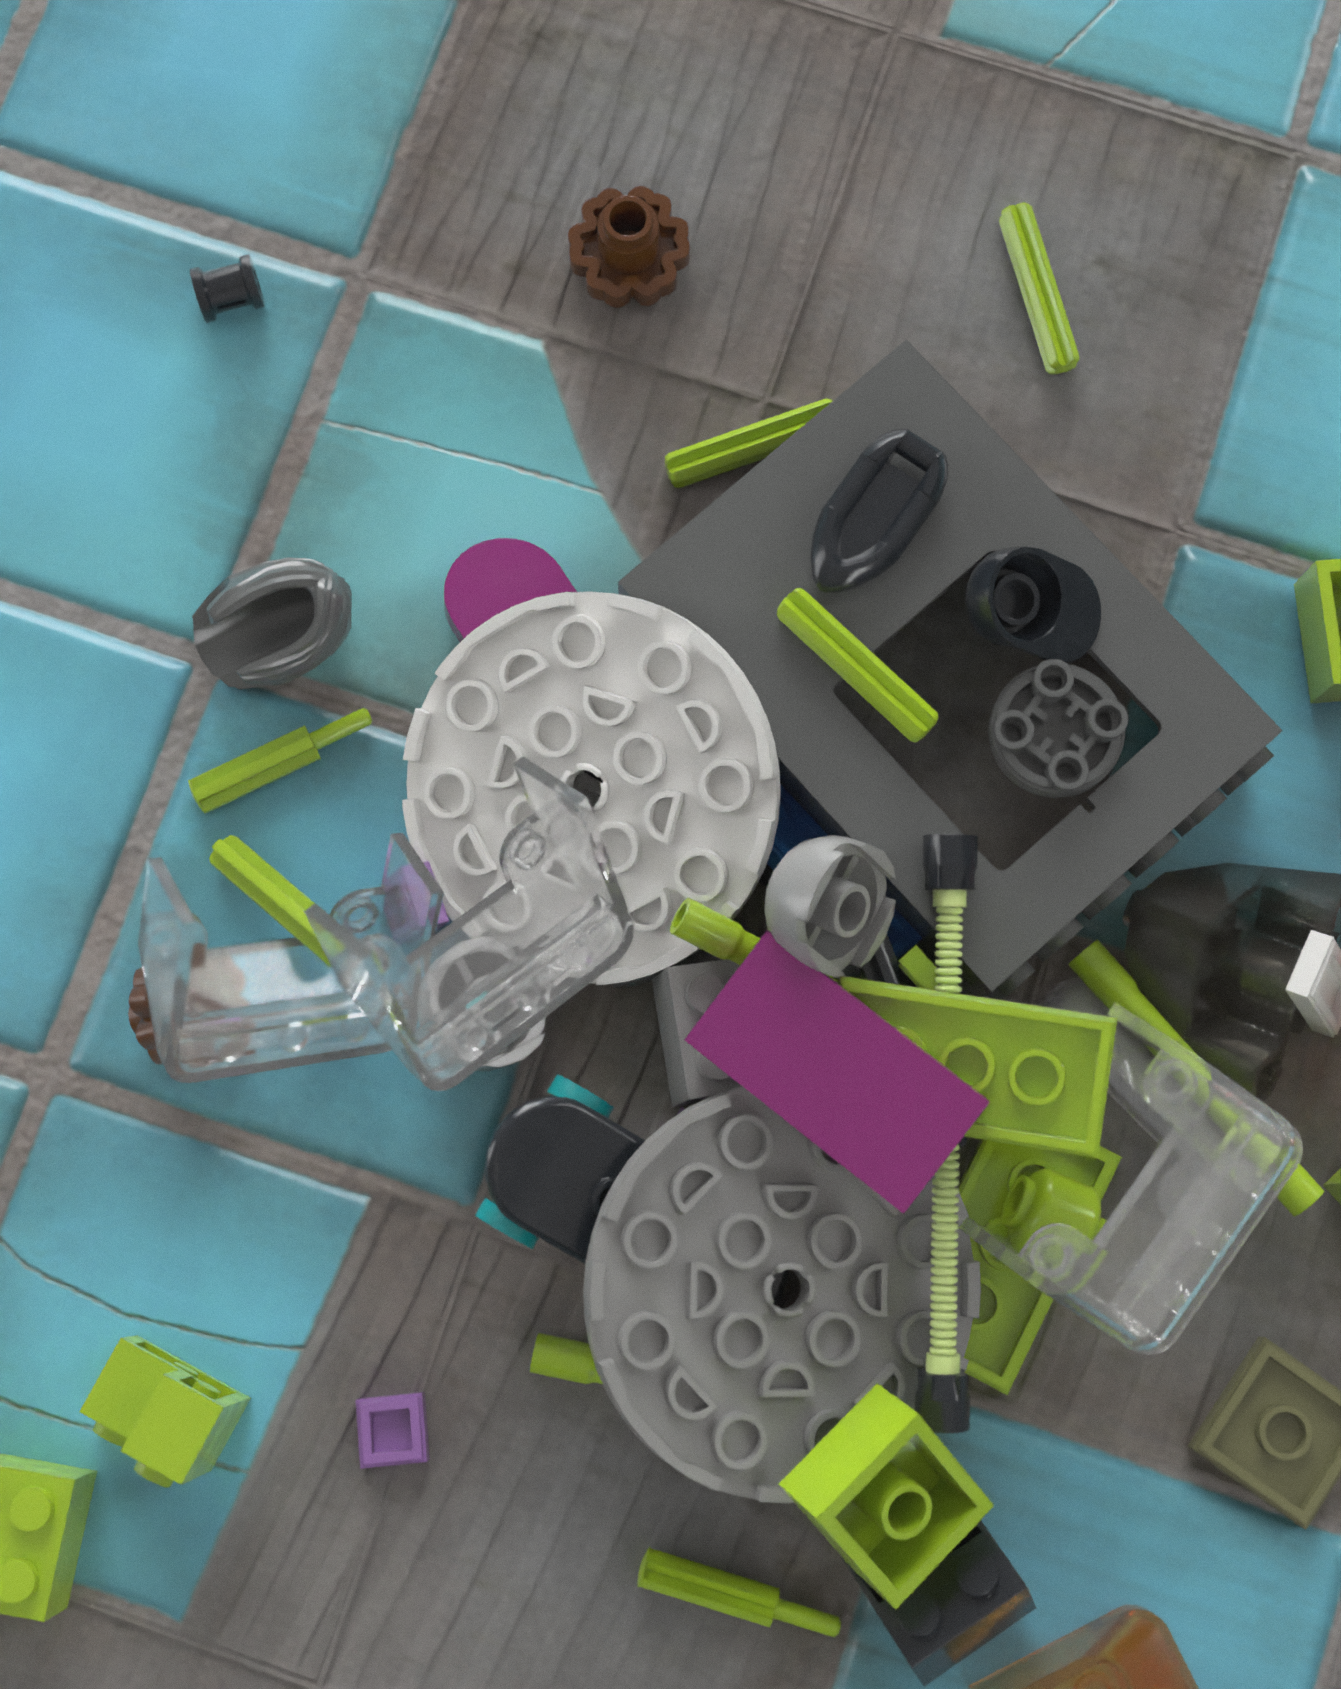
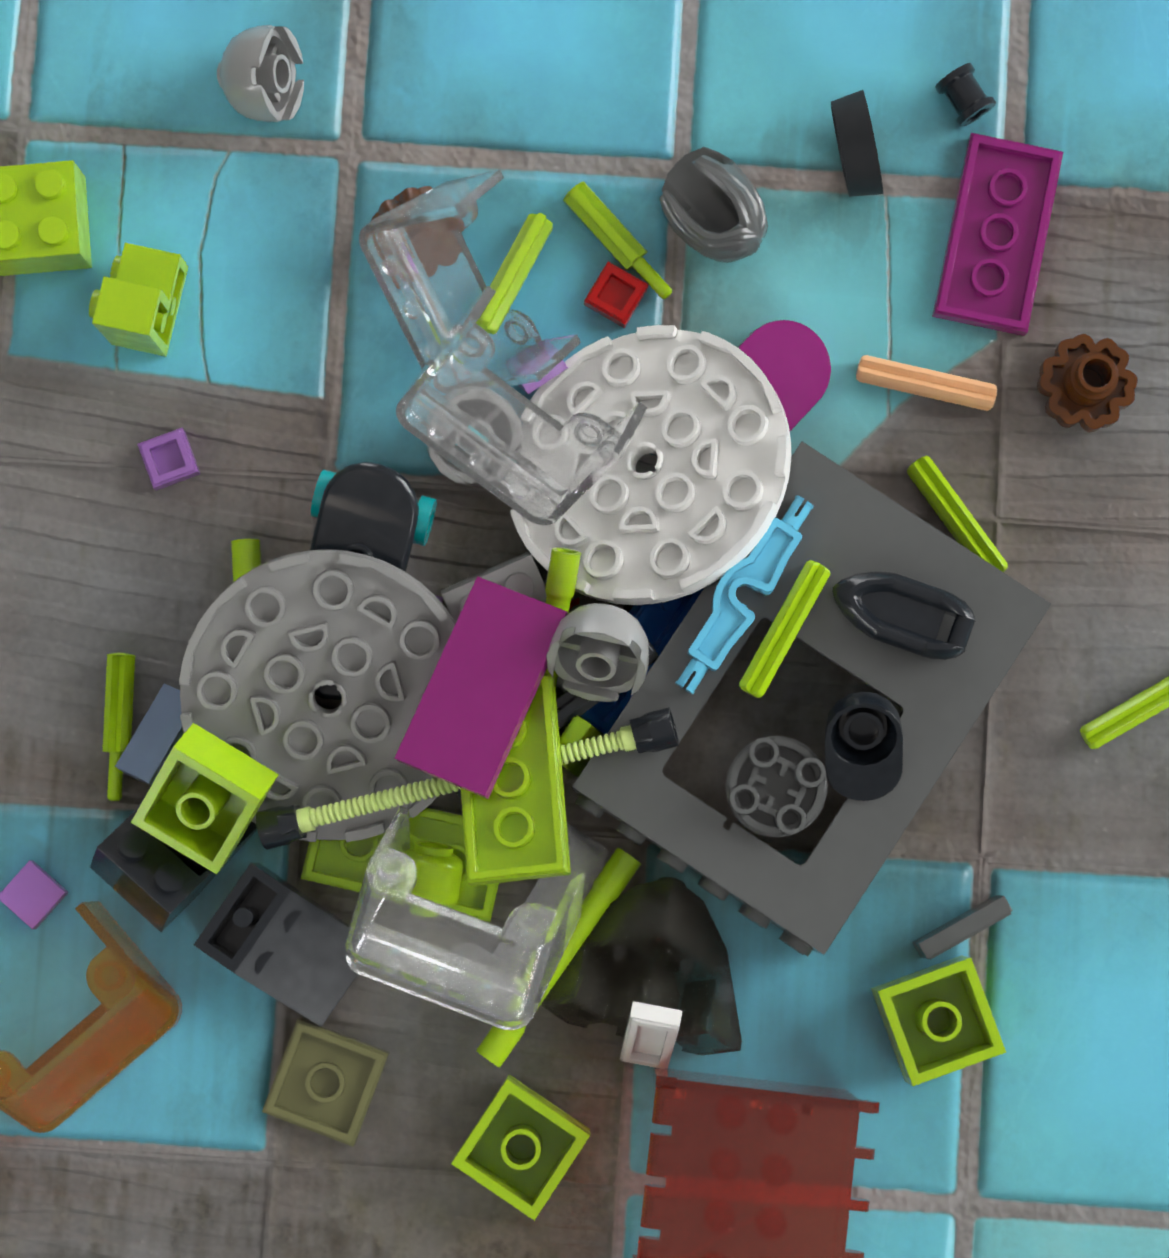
camera: 75 degrees right, 5 degrees up
(252, 424) = (857, 145): none -> black tyre
(347, 780) = (616, 294): none -> red tile
(412, 301) = (998, 234): none -> magenta tile
(573, 433) = (926, 383): none -> light nougat axle
(773, 1545) = (154, 737): none -> sand blue tile
(823, 729) = (731, 617): none -> medium azure piece
(1091, 1442) = (281, 943): none -> black slope
(1263, 570) = (962, 927): none -> dark grey tile

